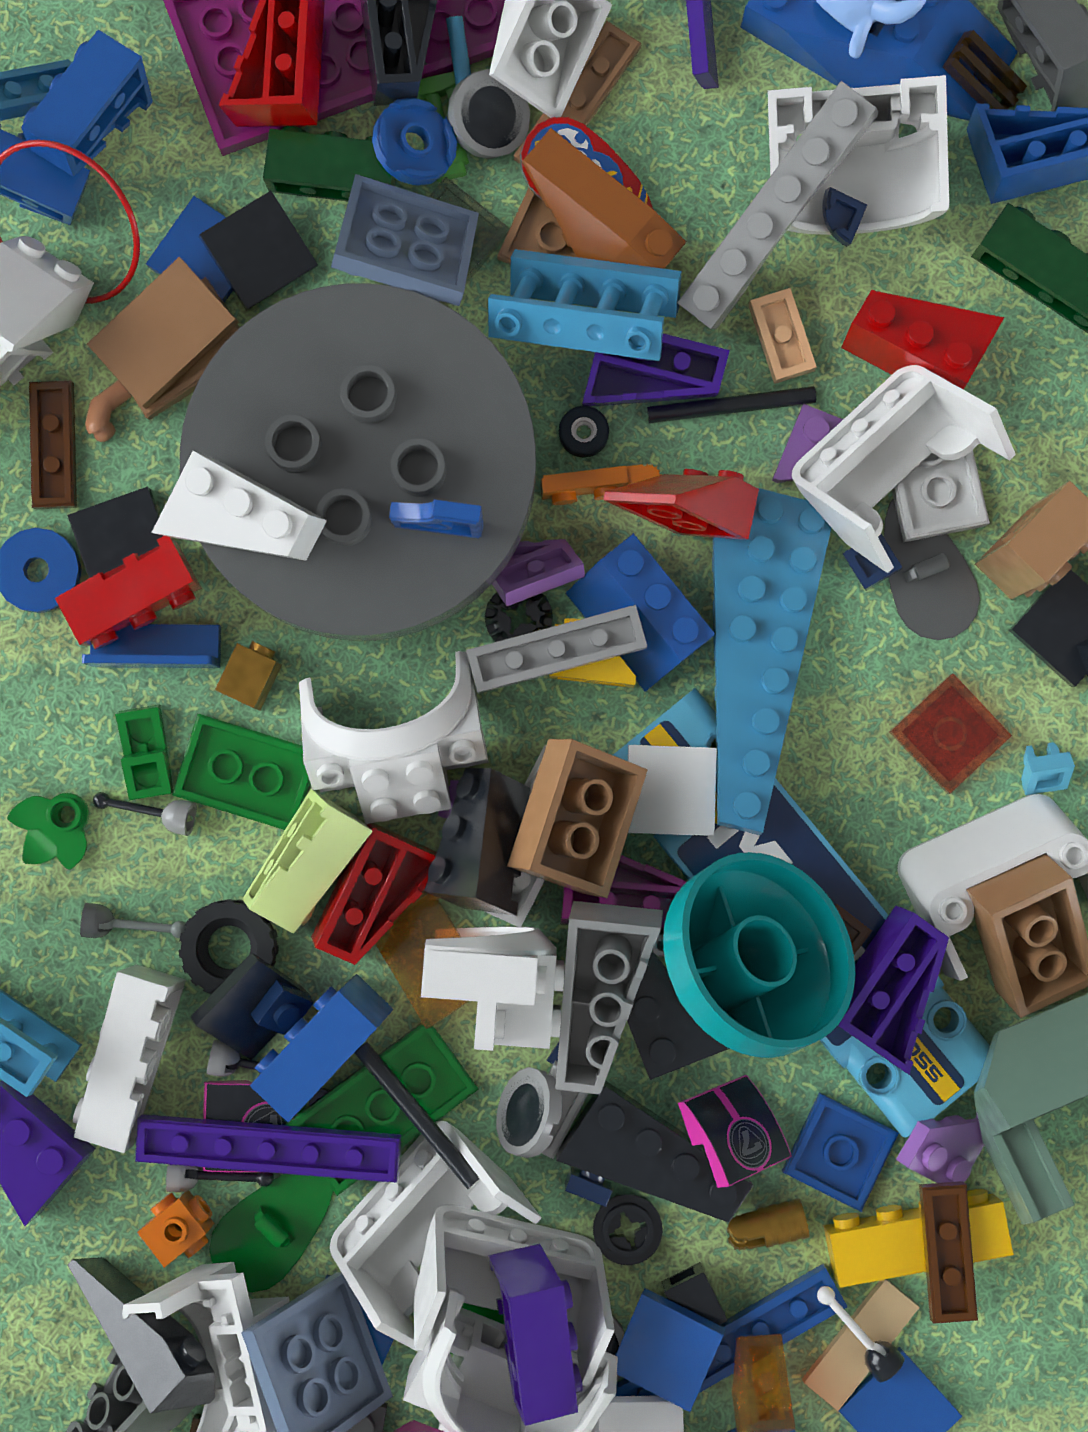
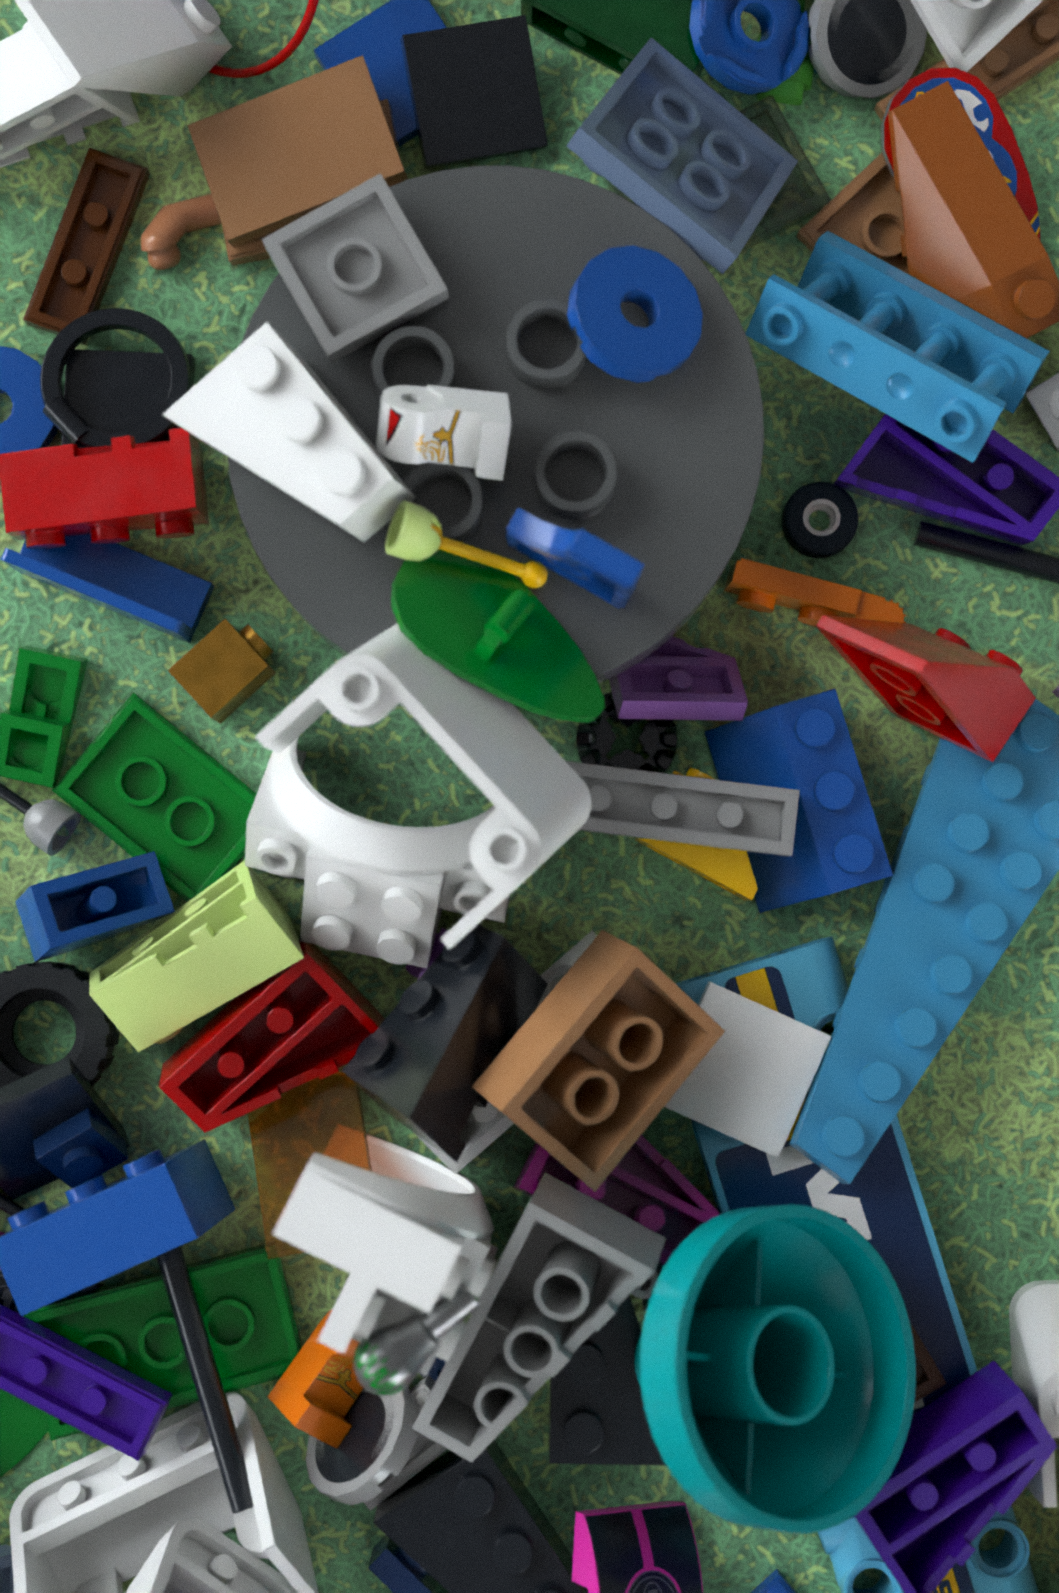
camera: 20 degrees right, 0 degrees up
(63, 521) = (66, 341): none -> black piece
(227, 855) = (93, 905): none -> blue slope
(232, 394) = (356, 268): none -> light grey plate
(327, 470) = (445, 427): none -> white leg
(337, 542) = (418, 535): none -> hinge
(407, 583) = (494, 636): none -> green shield
(421, 332) = (655, 286): none -> blue tile
(468, 667) = (529, 783): none -> white windscreen
(494, 1085) = (319, 1389): none -> orange leg
(525, 1041) = (397, 1352): none -> flat silver piece

